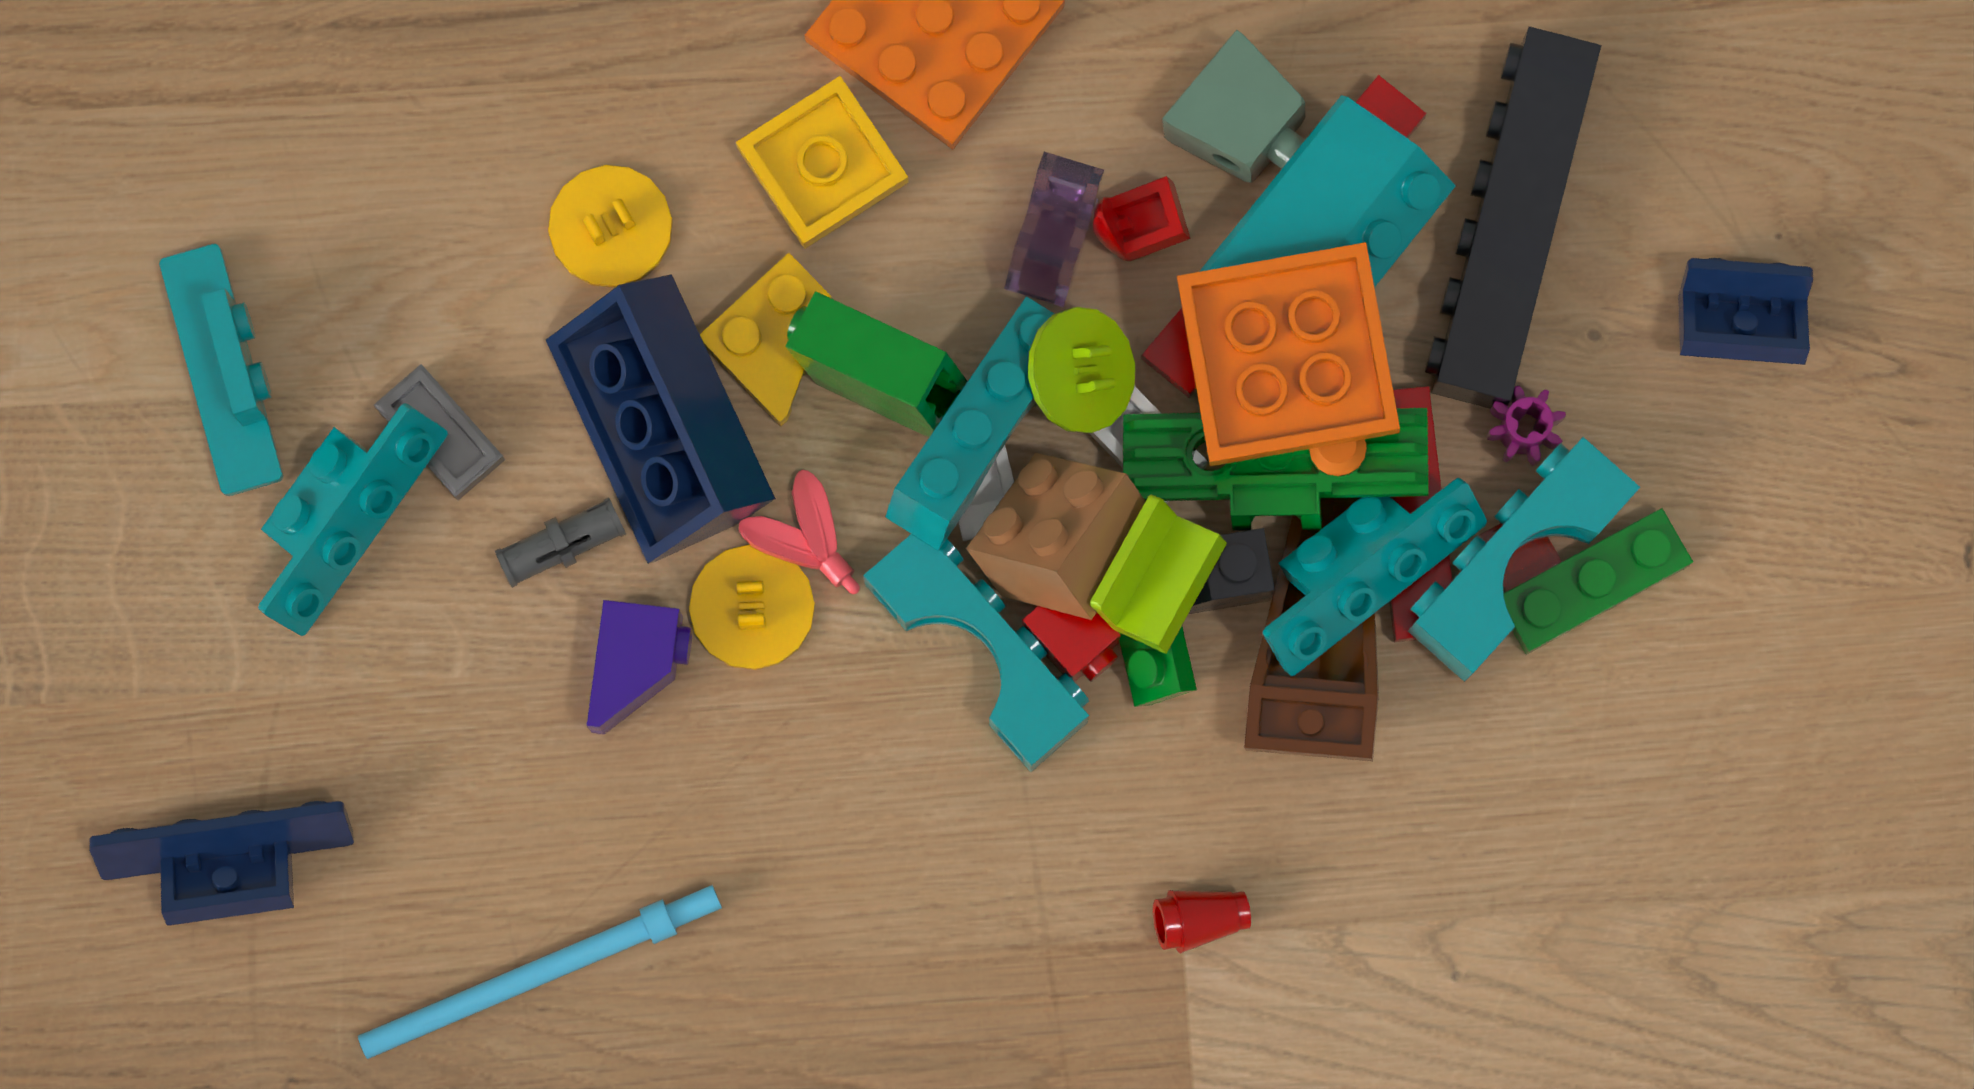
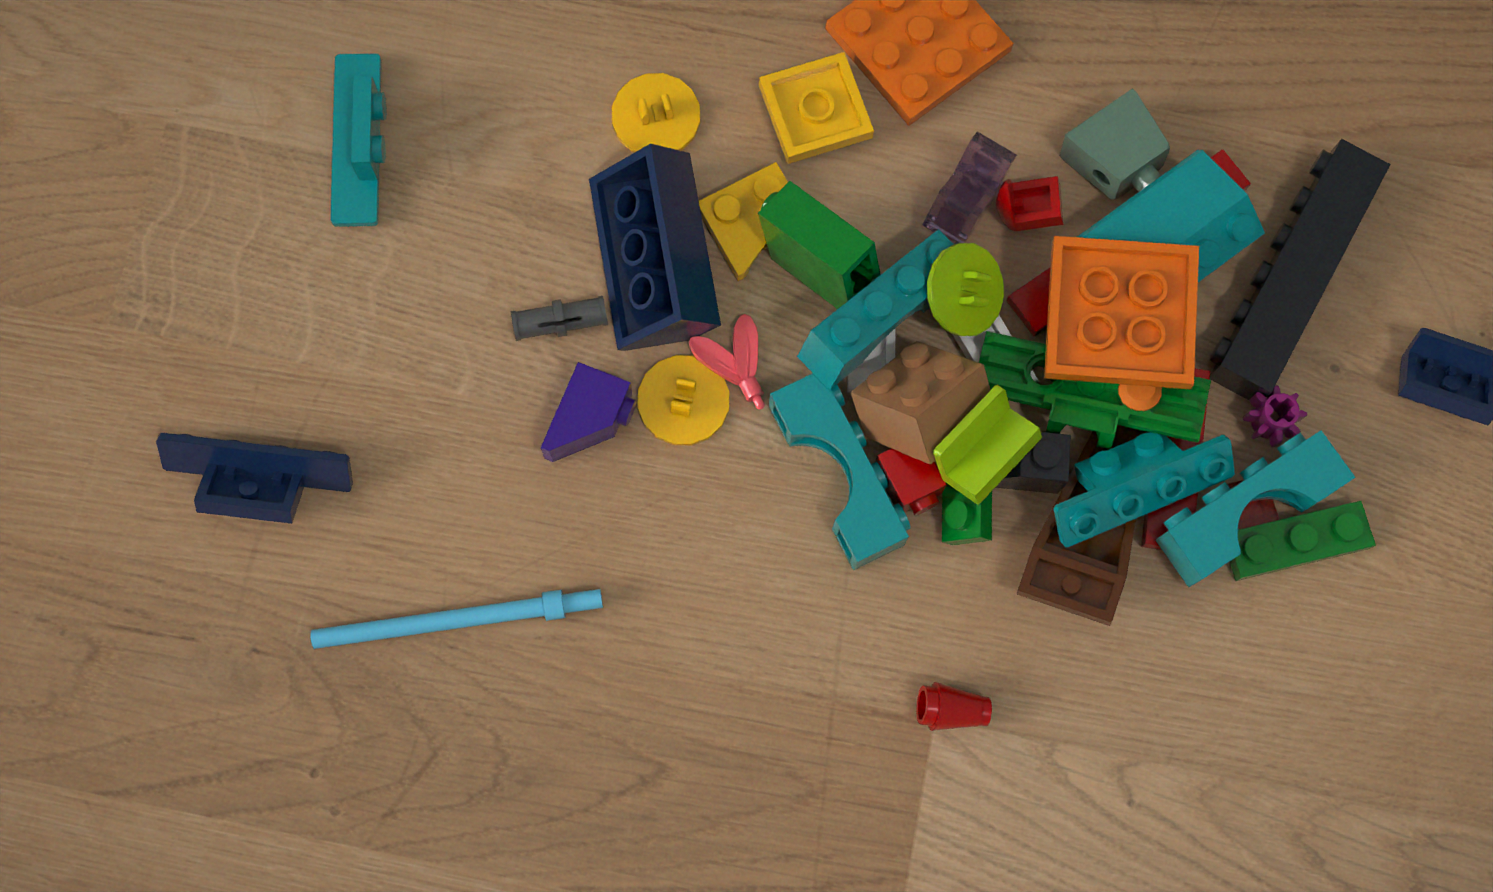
camera: 10 degrees right, 5 degrees down
(339, 511) = (411, 254): teal bracket -> none
(466, 452) = (496, 221): flat silver tile -> none

